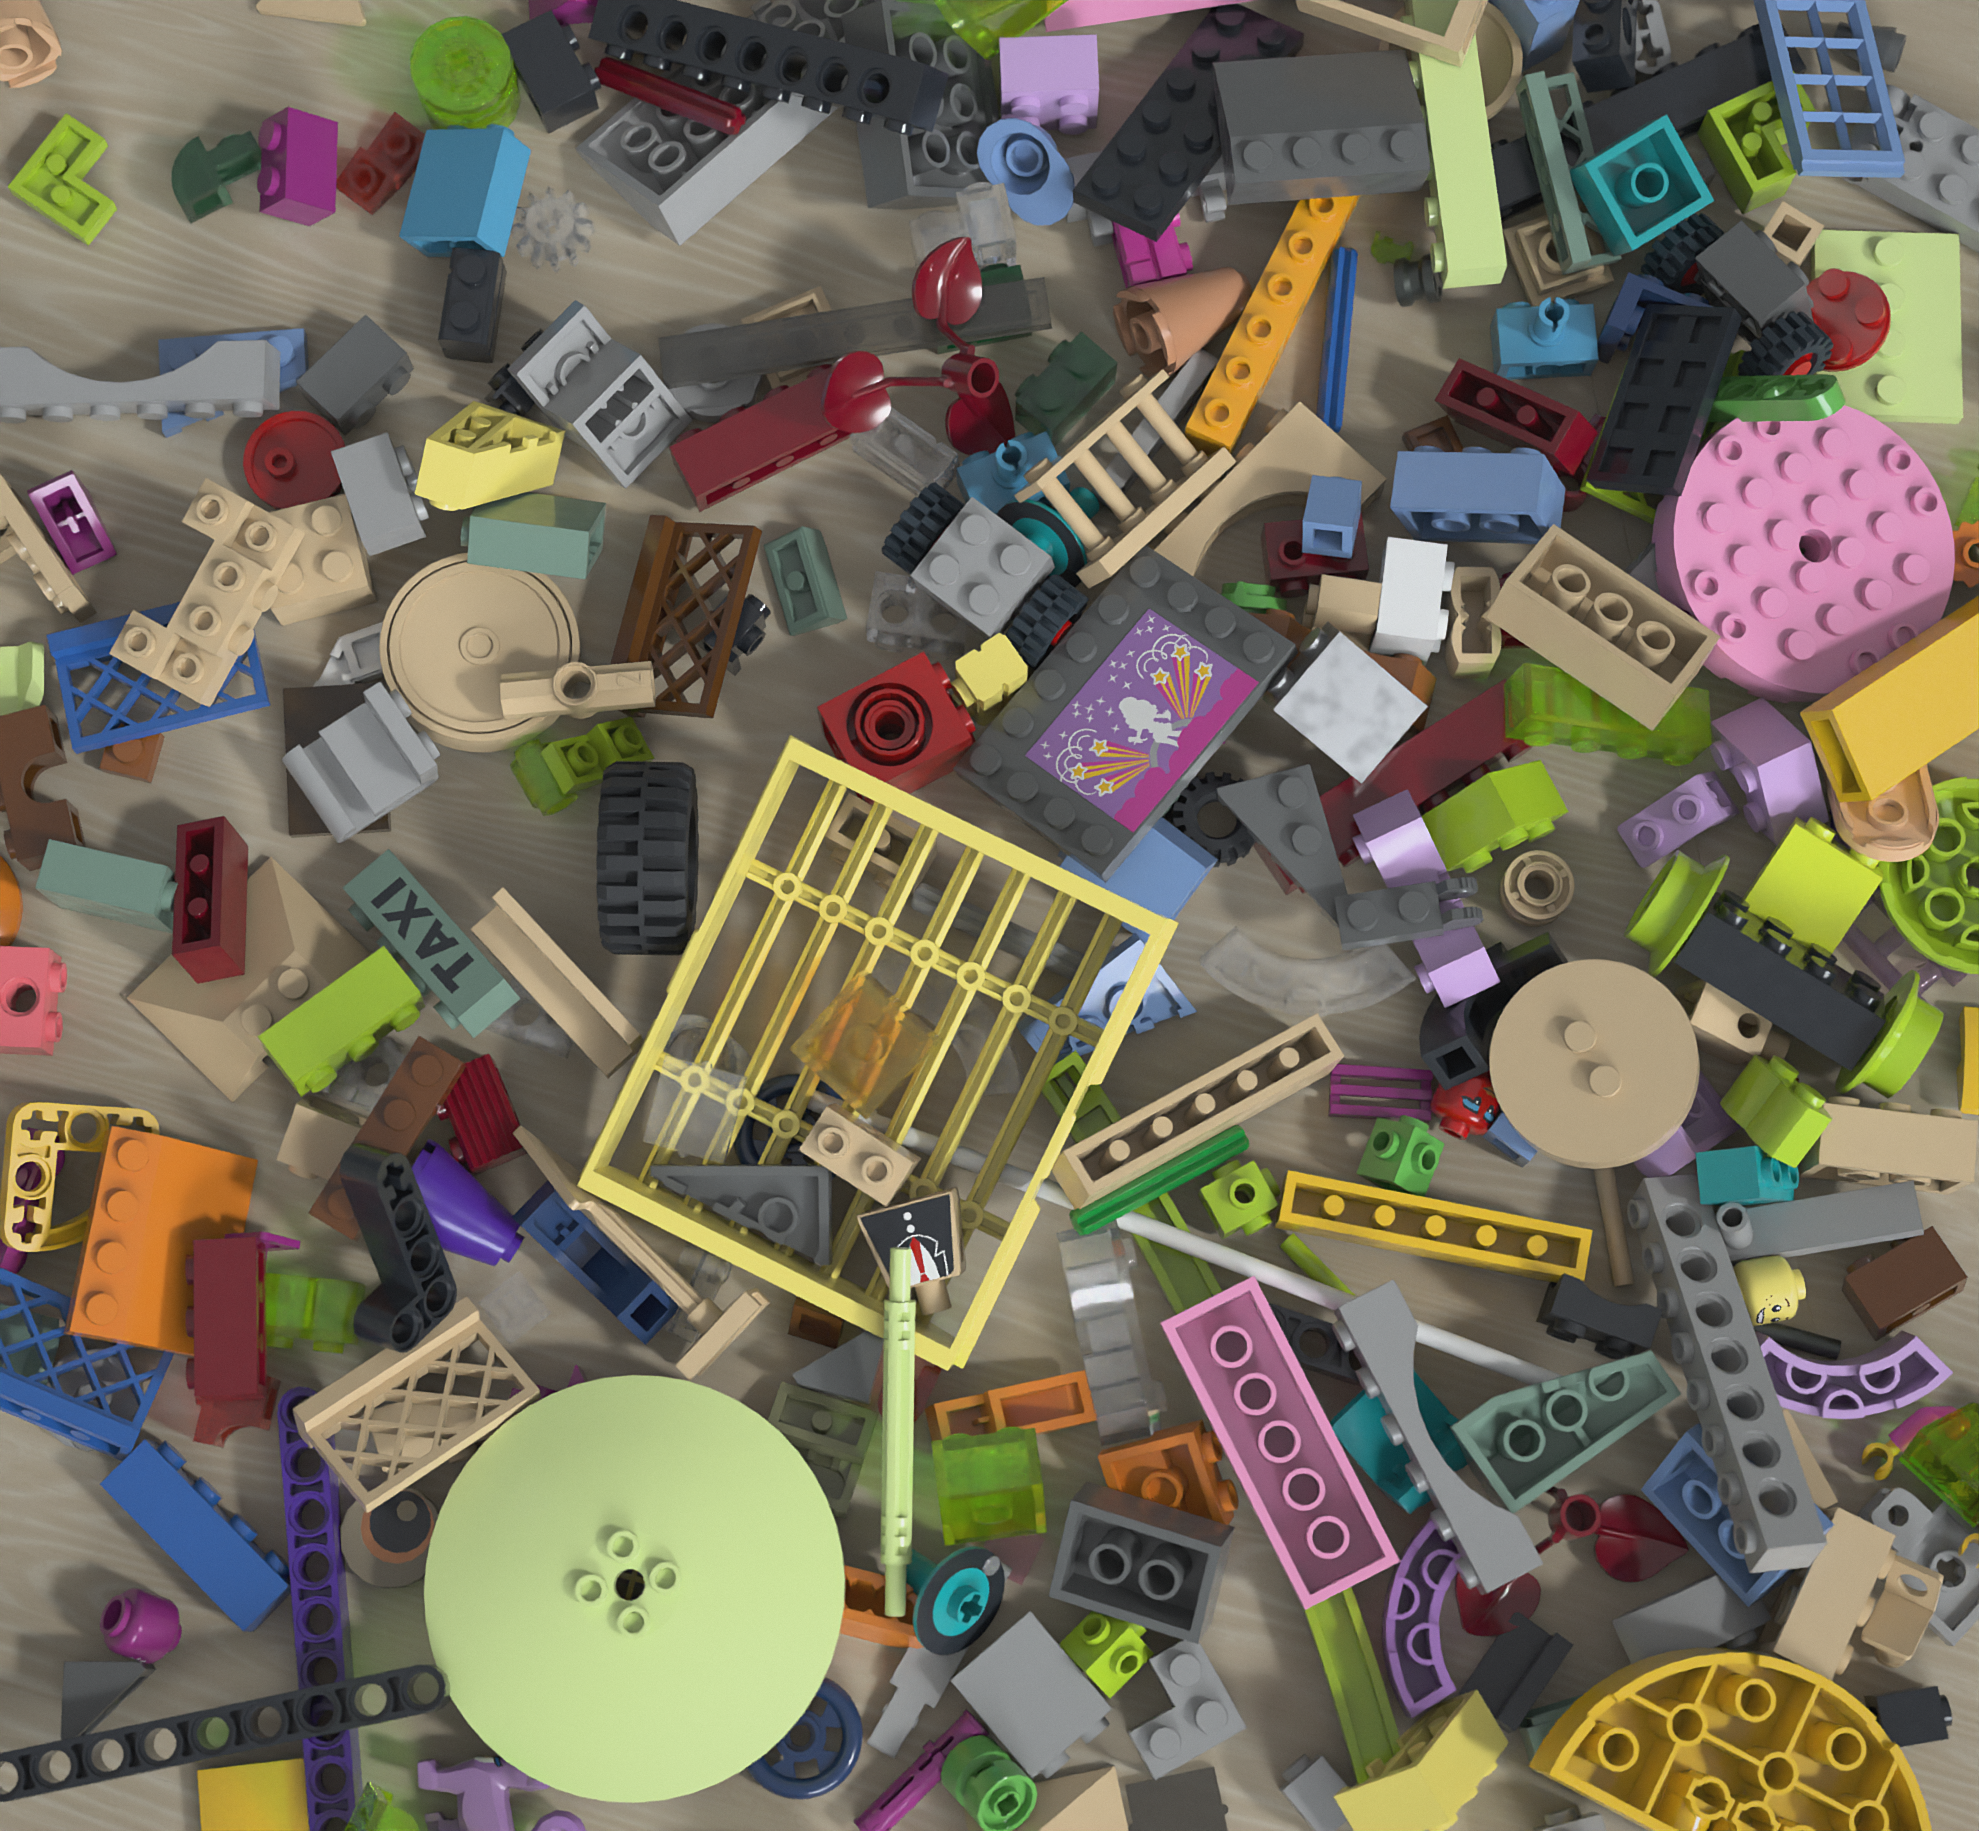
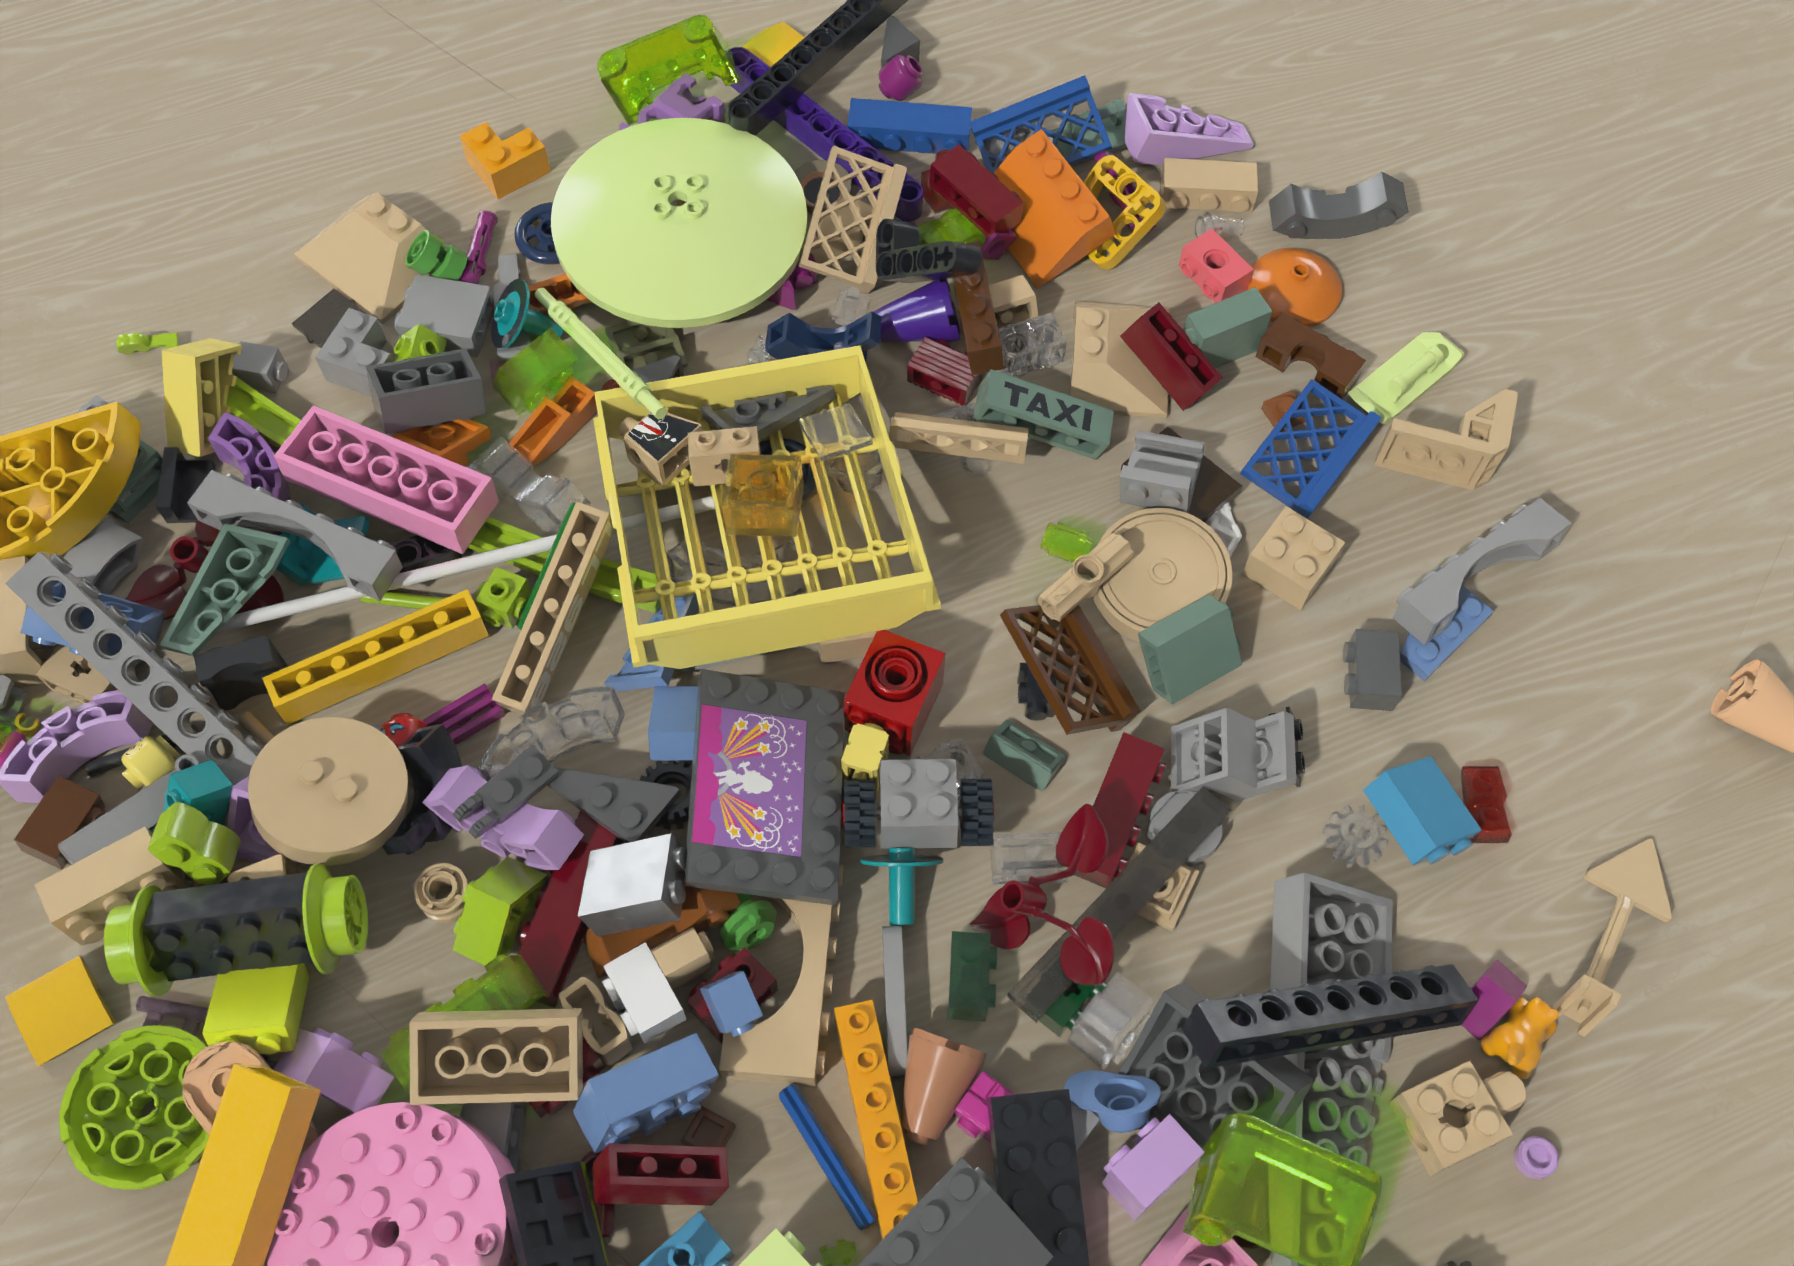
camera: 140 degrees right, 15 degrees down
(54, 182) = (1638, 648): lime plate -> none
(72, 521) = (1431, 487): magenta slope -> none
(201, 175) = (1571, 715): clear green brick -> none
(221, 602) = (1313, 485): tan bracket -> none
(292, 459) = (1356, 602): red piece -> none
(298, 166) = (1526, 753): magenta brick -> none
(343, 1022) = (1049, 339): lime brick -> none
(380, 493) = (1292, 600): light grey brick -> none
(470, 97) = (1492, 878): clear neon green wheel -> none
(472, 305) = (1351, 753): black brick -> none
(487, 457) = (1257, 658): light yellow wedge -> none
(551, 71) = (1453, 932): black brick -> none
(582, 759) = (1050, 564): lime slope -> none
(647, 857) = (967, 514): black tyre -> none
(670, 95) = (1363, 961): dark red axle -> none
(716, 1326) = (880, 357): tan piece -> none
(999, 476) = (954, 896): dark azure brick -> none
(1167, 496) = (847, 947): tan fence -> none
(1401, 1156) = (423, 682): bright green brick -> none
(1416, 281) = (807, 1230): pearl dark grey wheel -> none
(1677, 818) = (367, 1011): lavender bracket -> none

